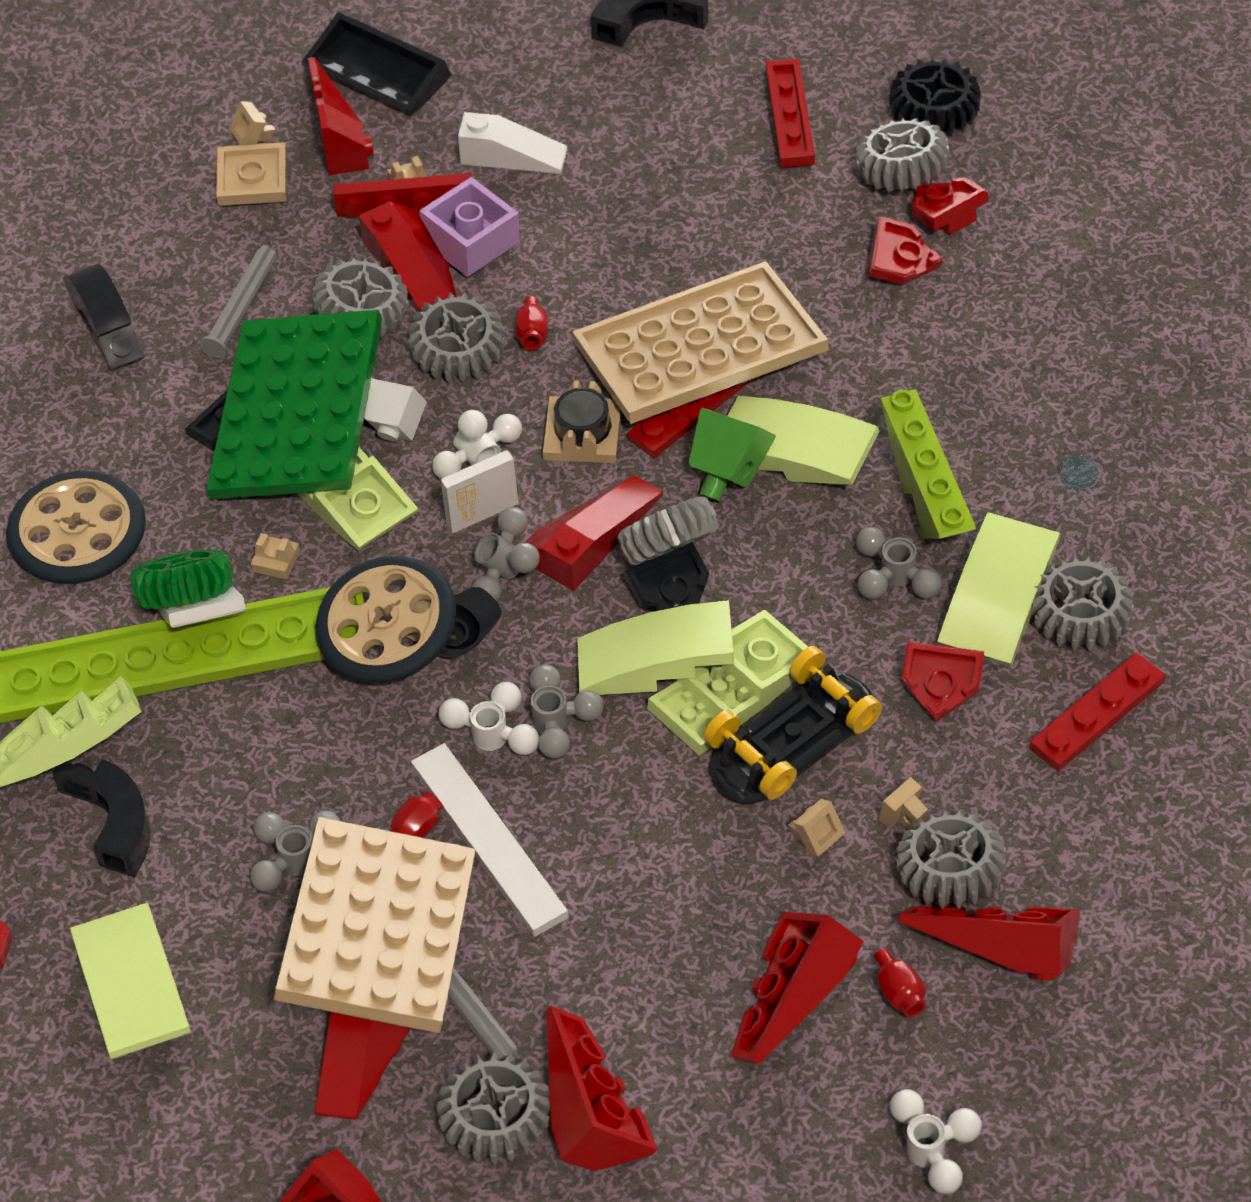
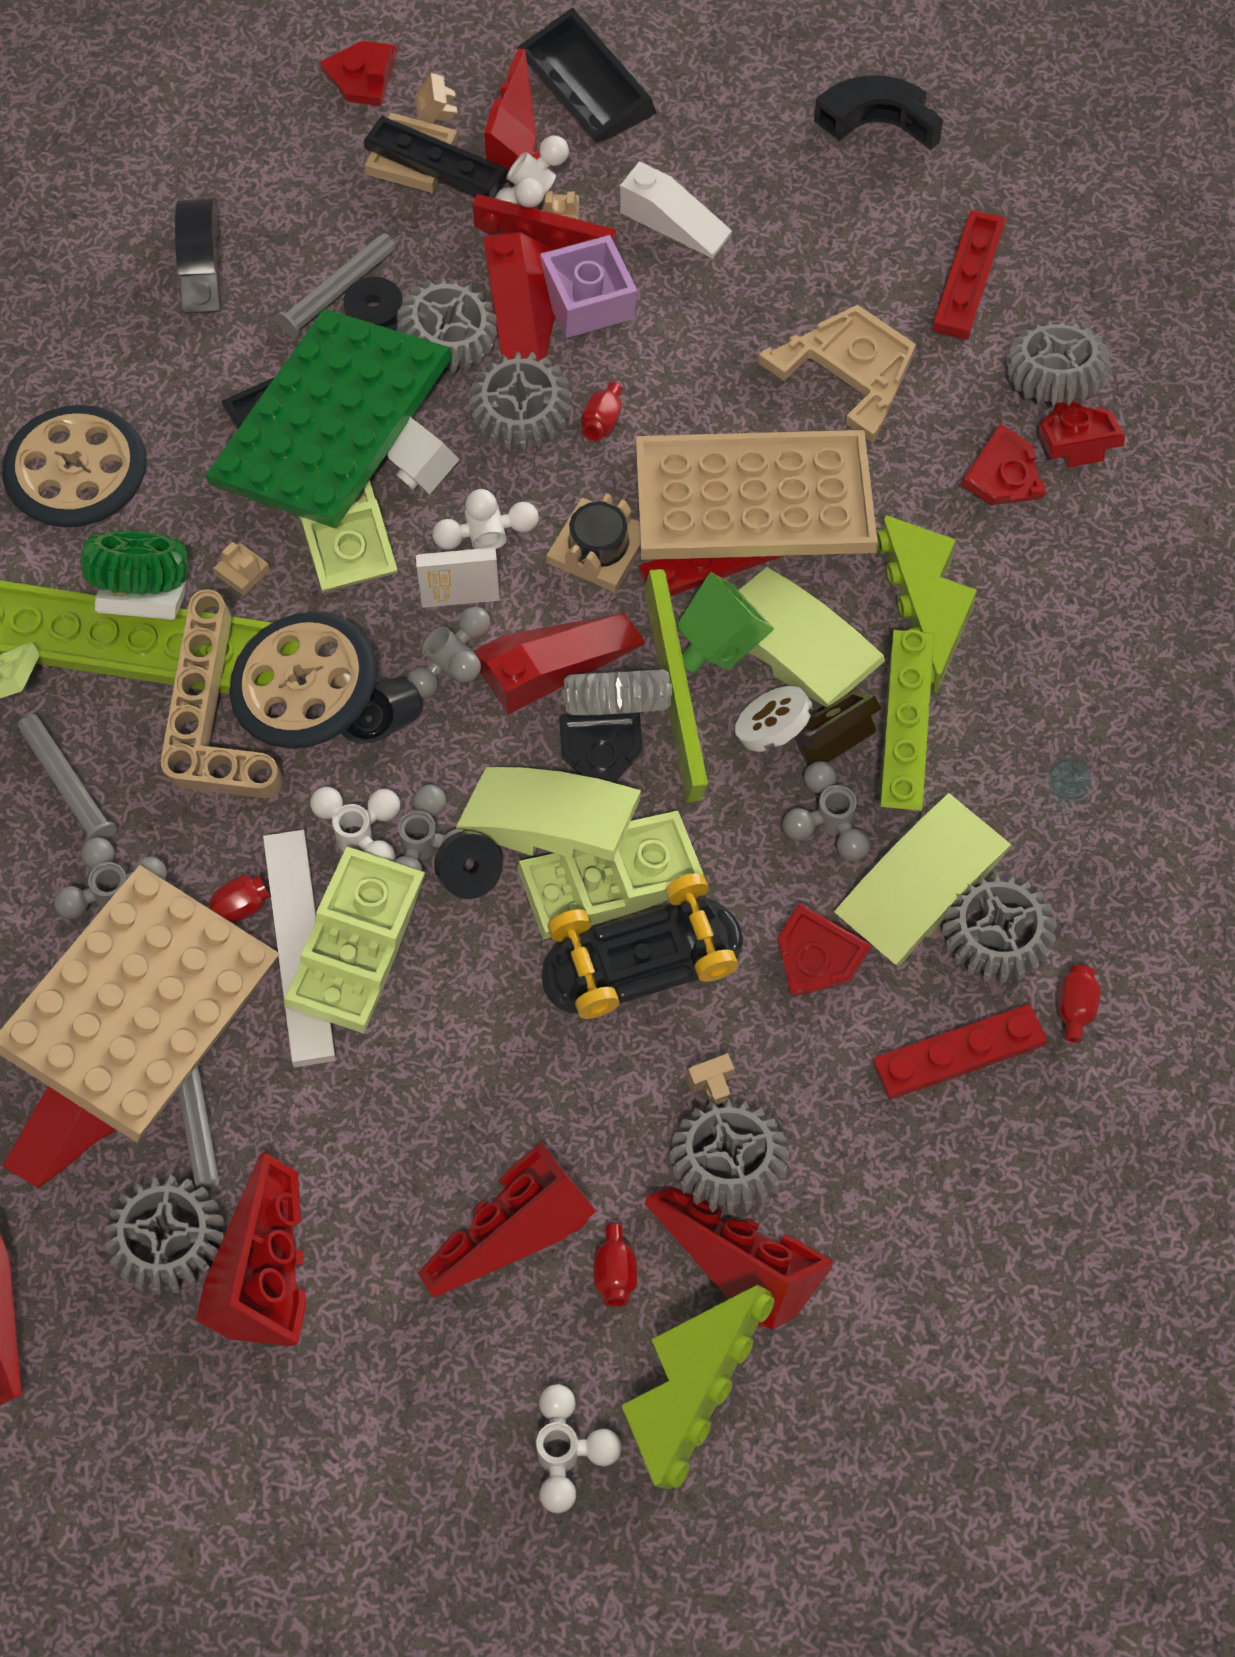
camera: 20 degrees right, 10 degrees up
(169, 125) = (361, 71): none -> red plate
(205, 779) = (65, 779): none -> light grey axle
(278, 169) = (435, 157): none -> black tile
(278, 294) = (371, 290): none -> black piece
(302, 677) = (202, 709): none -> tan beam
(376, 154) = (532, 176): none -> white piece
(540, 810) = (354, 939): none -> yellowish green slope
(592, 718) = (455, 852): none -> black piece
(725, 203) = (857, 351): none -> tan wing
(730, 534) = (681, 709): none -> lime tile
(809, 506) = (773, 718): none -> white tile
(818, 827) = (617, 1067): tan tile -> none
(866, 496) = (838, 727): none -> dark brown panel
(867, 352) = (926, 598): none -> lime slope
(936, 94) = (1124, 301): black gear -> none
(1015, 1021) = (699, 1365): none -> lime slope
(1175, 634) = (1078, 1000): none -> red plant

